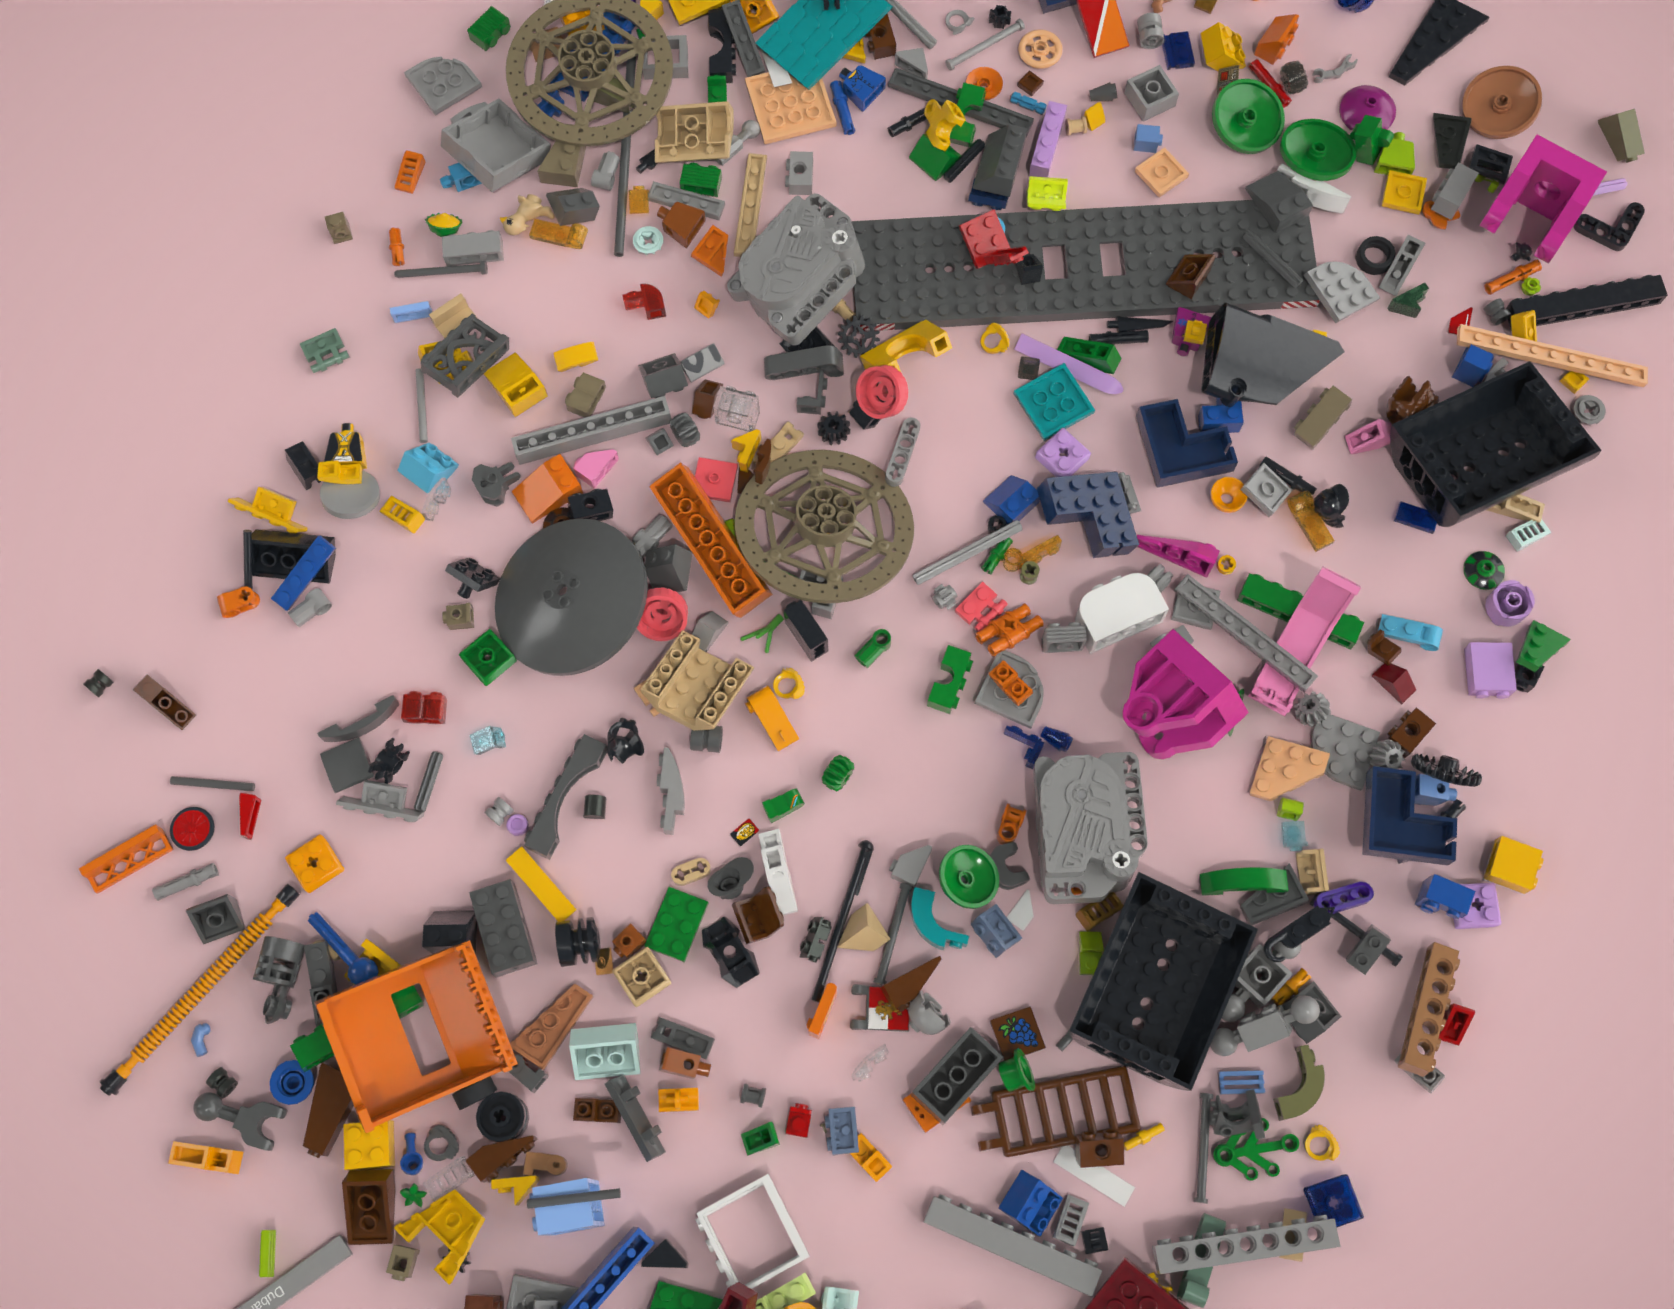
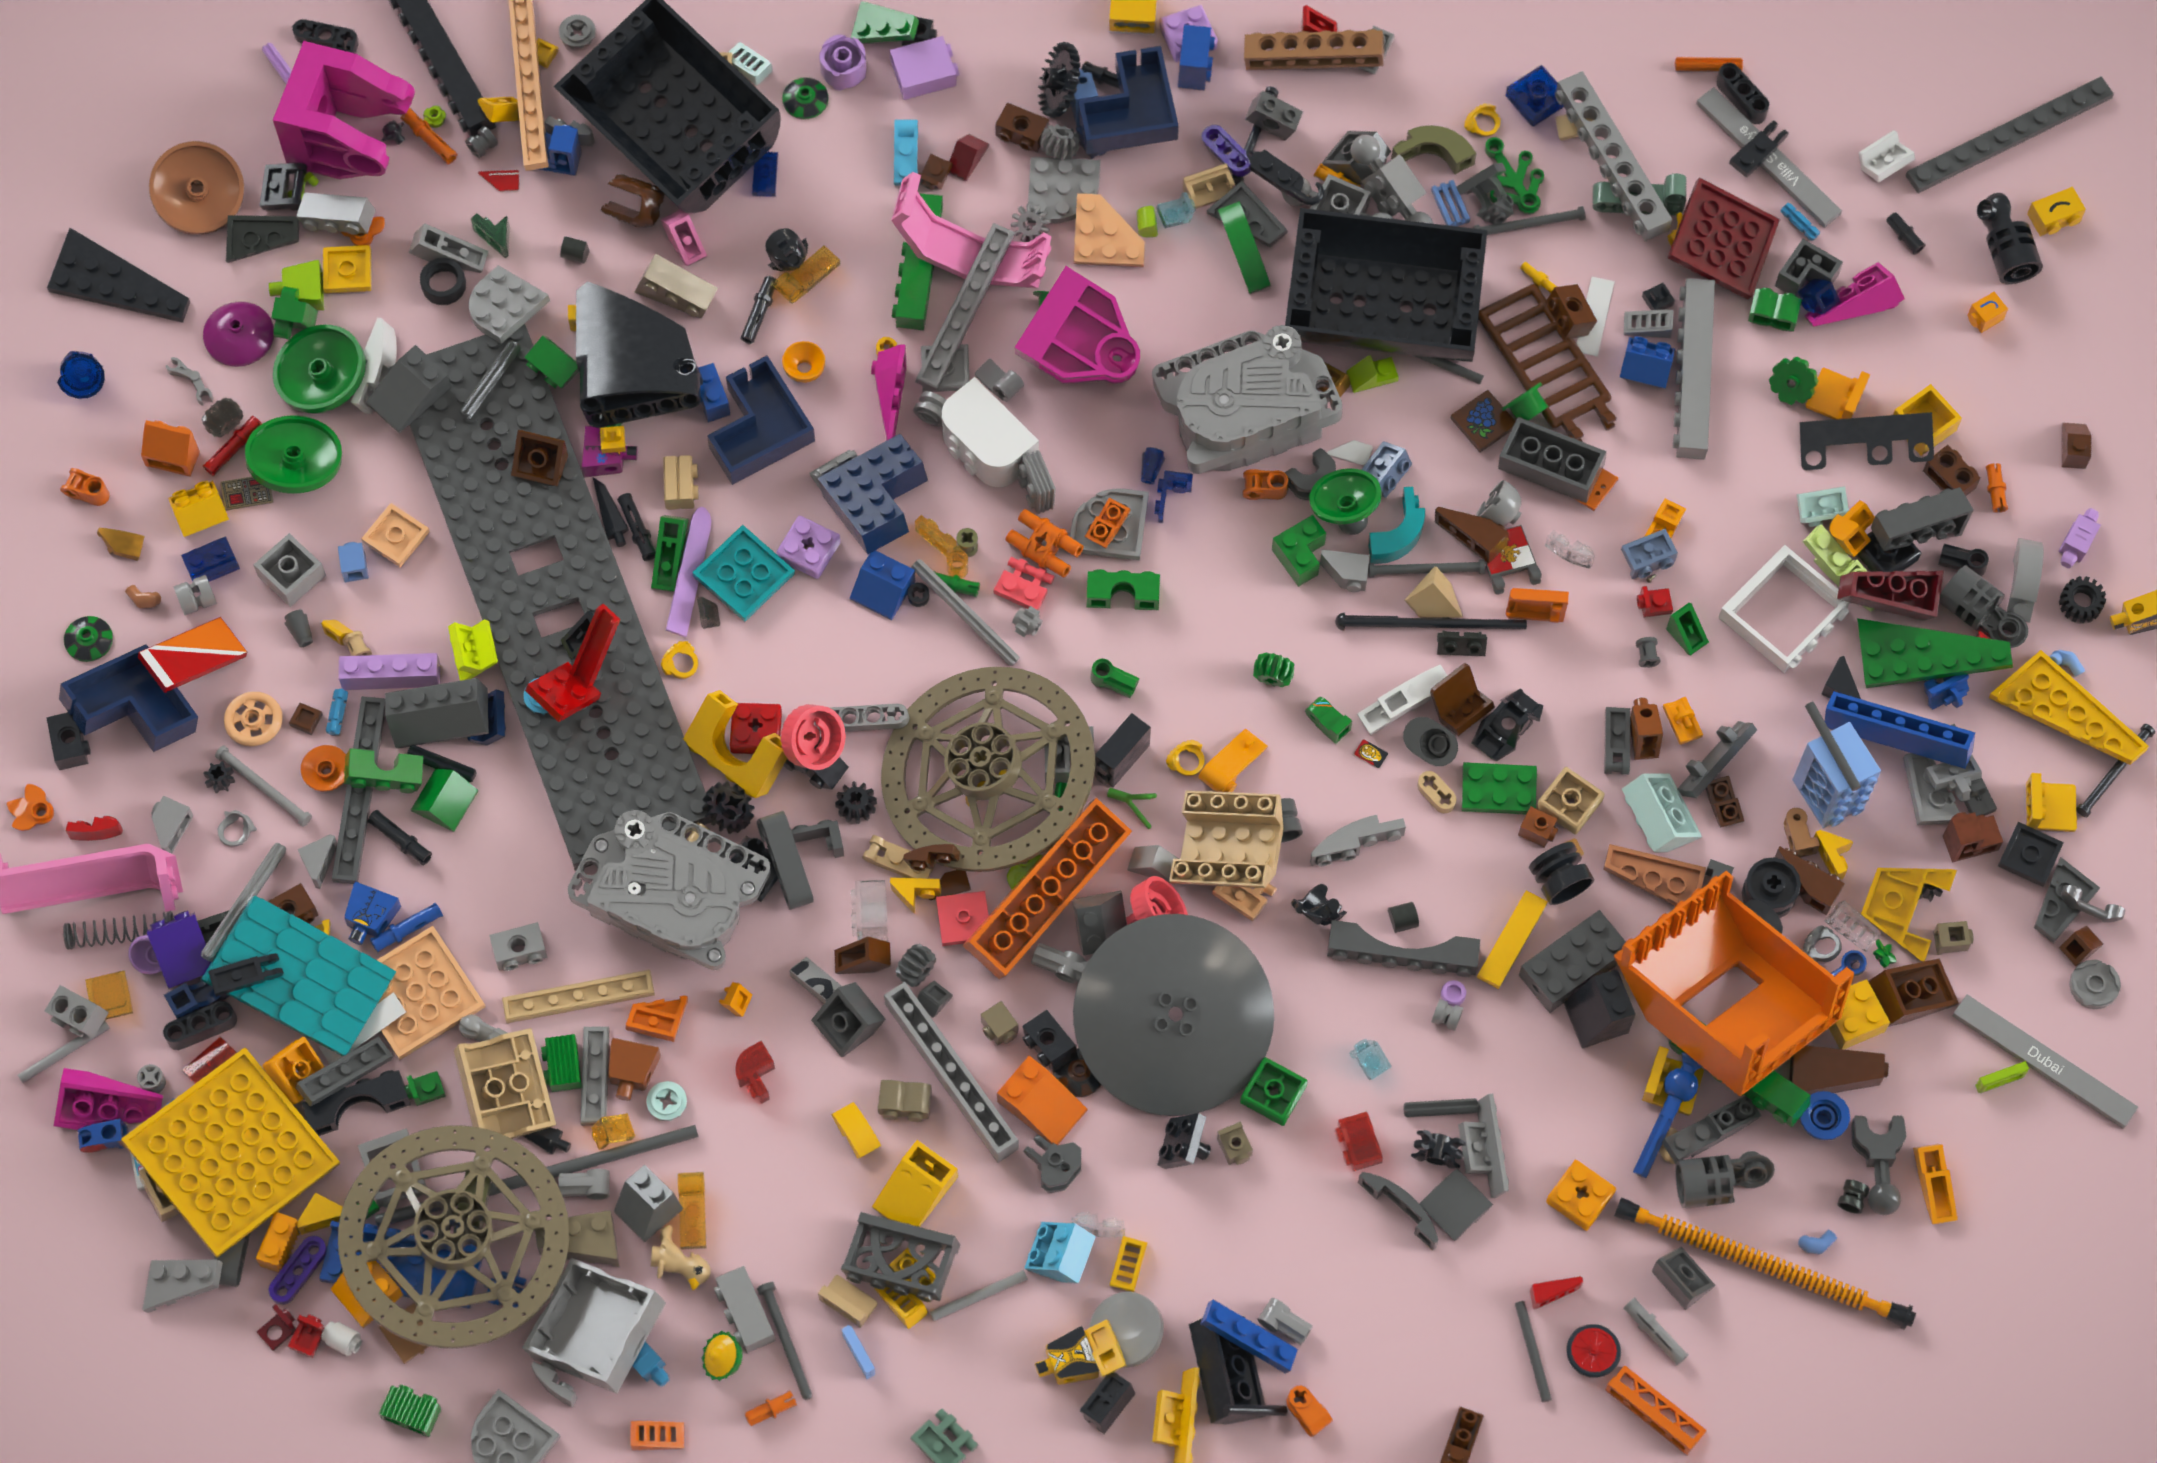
camera: 110 degrees left, 5 degrees down
(595, 466) = (994, 1056): bright pink slope -> none
(618, 477) = (999, 1024): none -> dark tan brick
(930, 369) = (745, 717): none -> red brick
(941, 827) = (1295, 549): none -> green brick
(942, 121) = (405, 792): yellow piece -> none
(1147, 376) = (679, 482): none -> tan brick
(1266, 489) = (784, 325): light grey tile -> none
(1279, 302) = (553, 362): none -> green slope
(1378, 355) = (574, 250): none -> pearl dark grey brick
(1623, 135) = (204, 57): olive slope -> none

